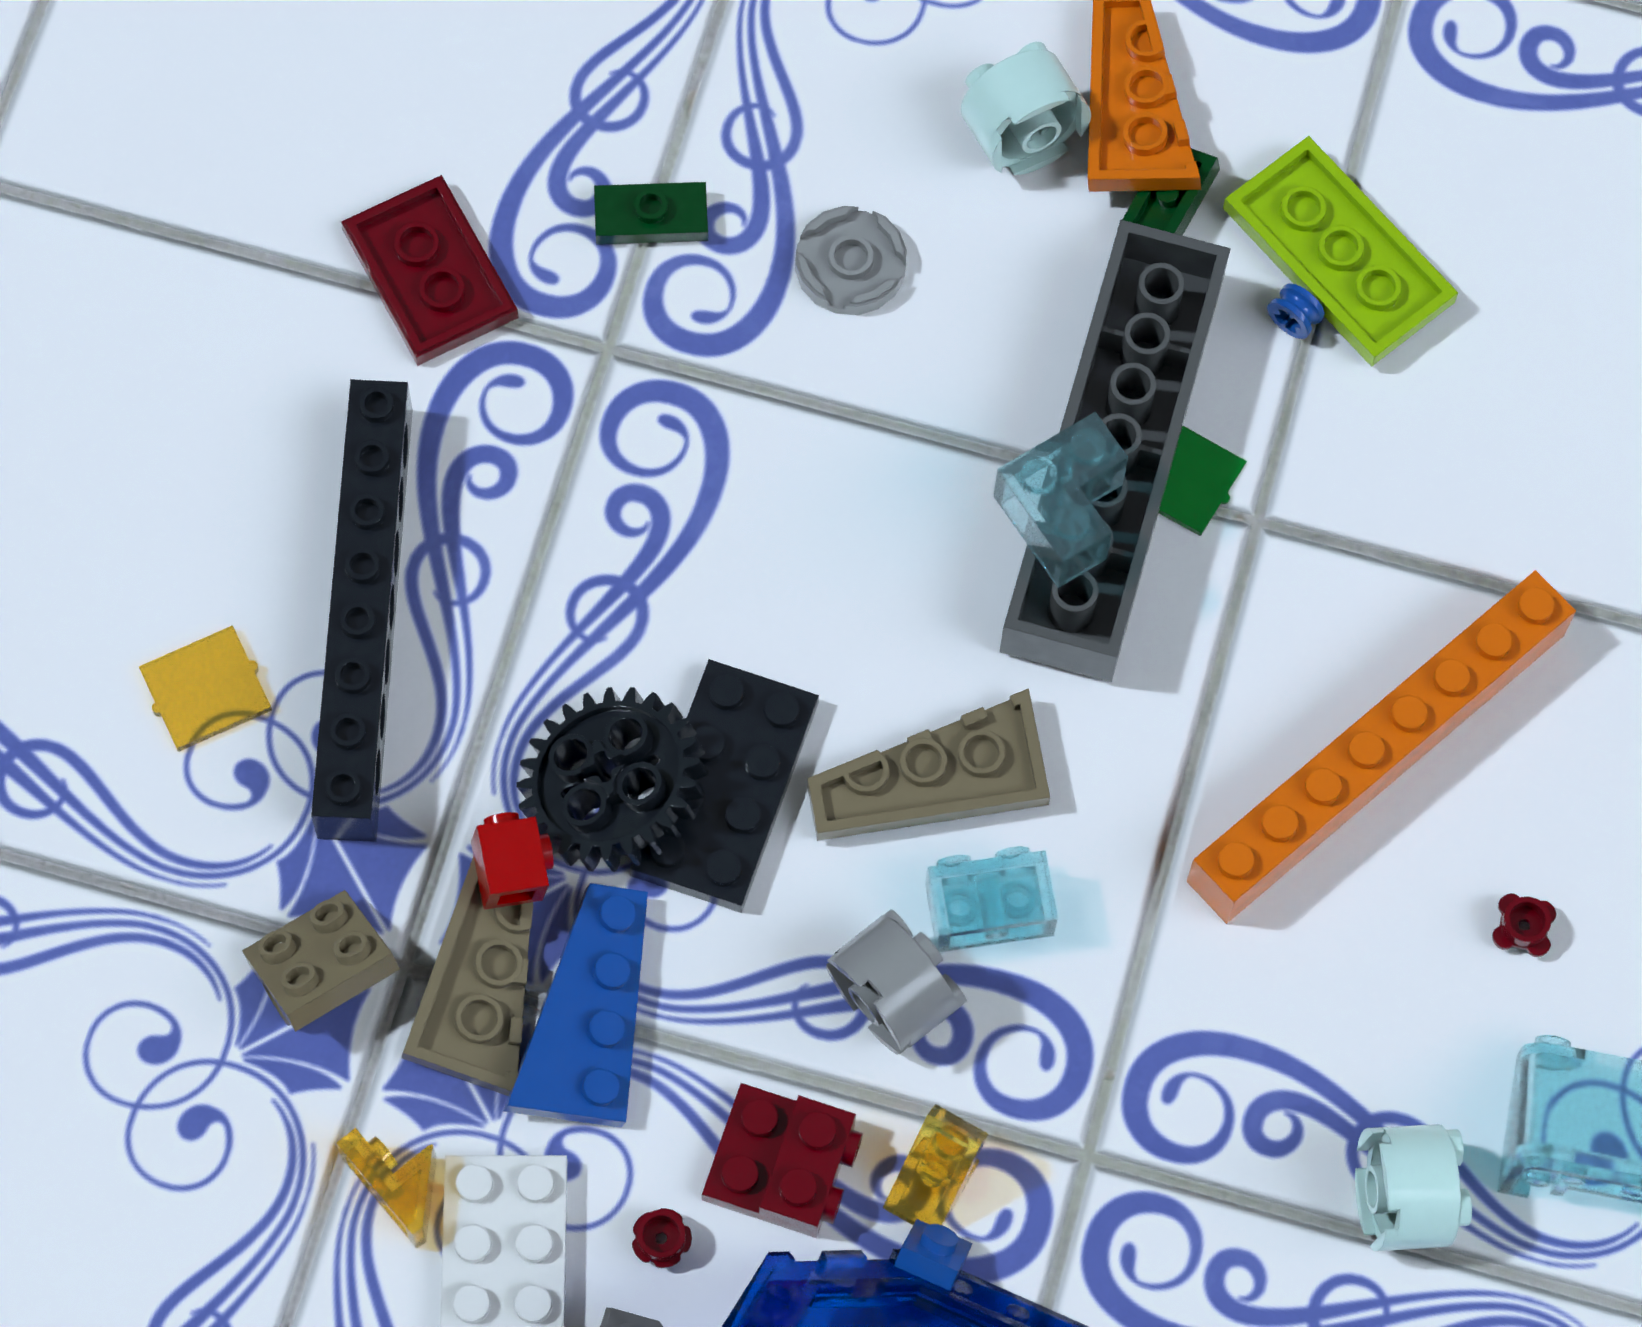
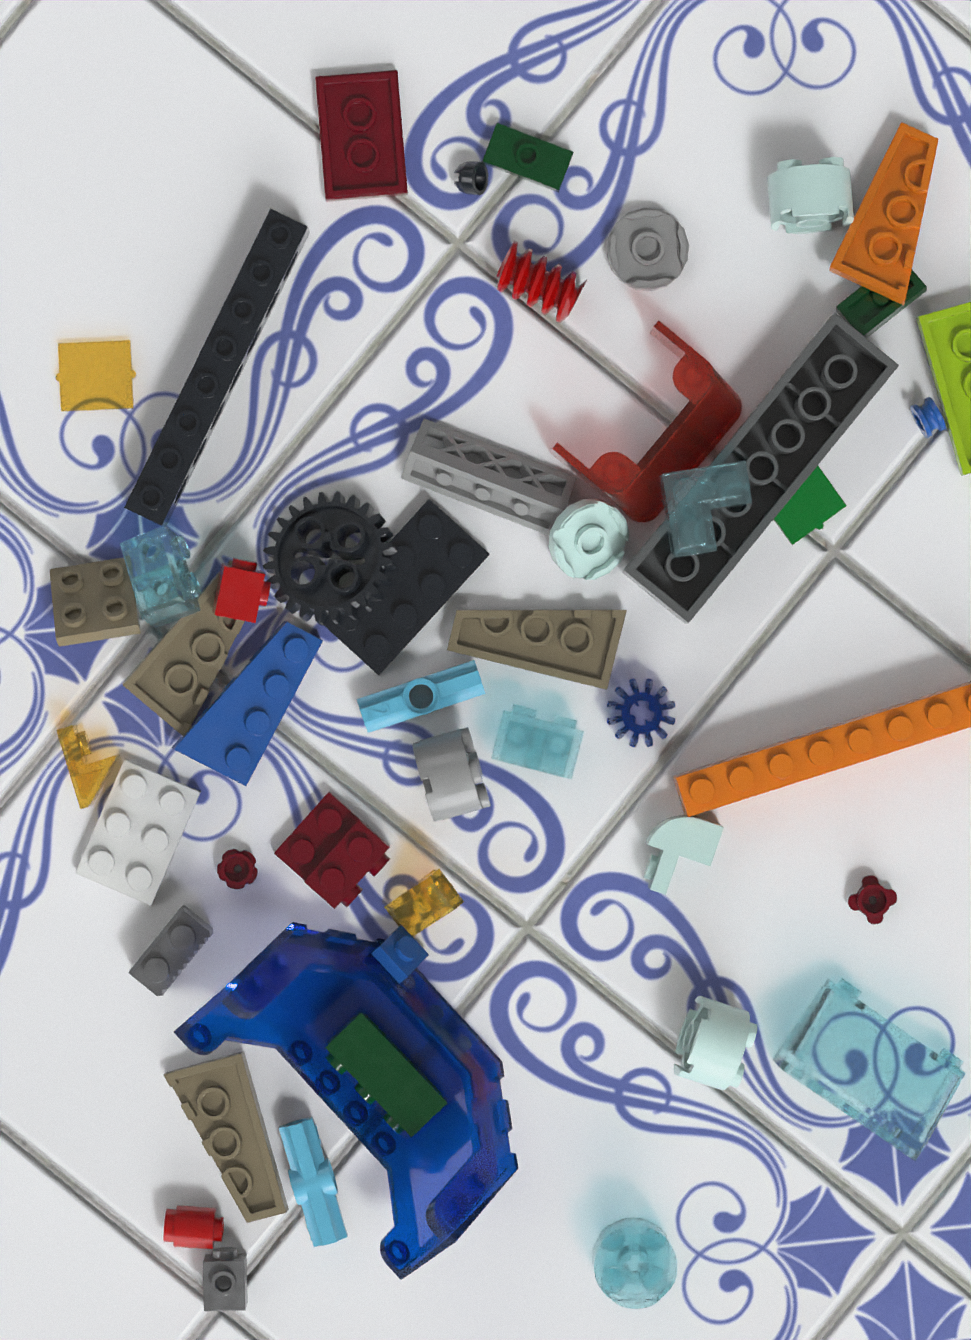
camera: 30 degrees right, 20 degrees up
(396, 889) = (161, 576): none -> clear light blue brick
(592, 261) = (472, 178): none -> black hinge
(732, 344) = (538, 283): none -> red piece
(772, 608) = (486, 483): none -> light grey fence
(783, 931) = (394, 706): none -> medium azure piece
(938, 621) = (588, 539): none -> light aqua tile
(963, 530) = (682, 446): none -> clear red windscreen
(1123, 797) = (652, 704): none -> clear blue gear
(1237, 945) = (678, 837): none -> light aqua brick

